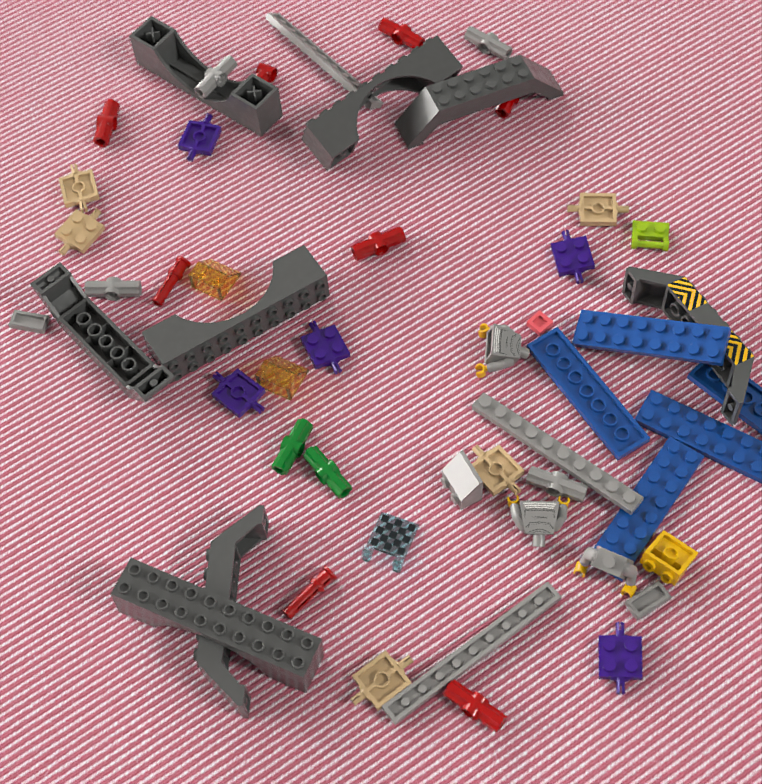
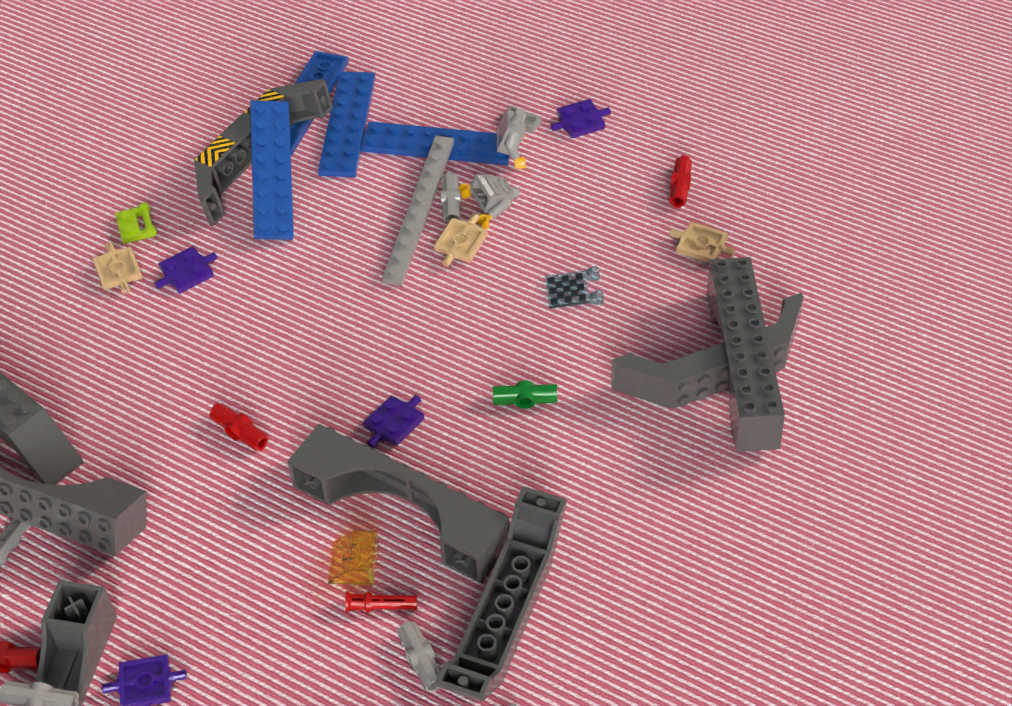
camera: 120 degrees left, 10 degrees down
(238, 393) = (490, 467): dark purple plate -> none
(281, 376) = (449, 438): clear yellow slope -> none
(316, 586) = (651, 318): red pin -> none
(327, 472) = (536, 355): green piece -> none
(462, 481) = (488, 251): slope -> none
(471, 653) = (635, 197): light grey plate -> none
(501, 349) = (327, 276): light grey torso -> none
(539, 323) = (281, 265): coral plate -> none
(588, 393) = (341, 211): blue plate -> none
(668, 558) = (479, 113): yellow plate -> none

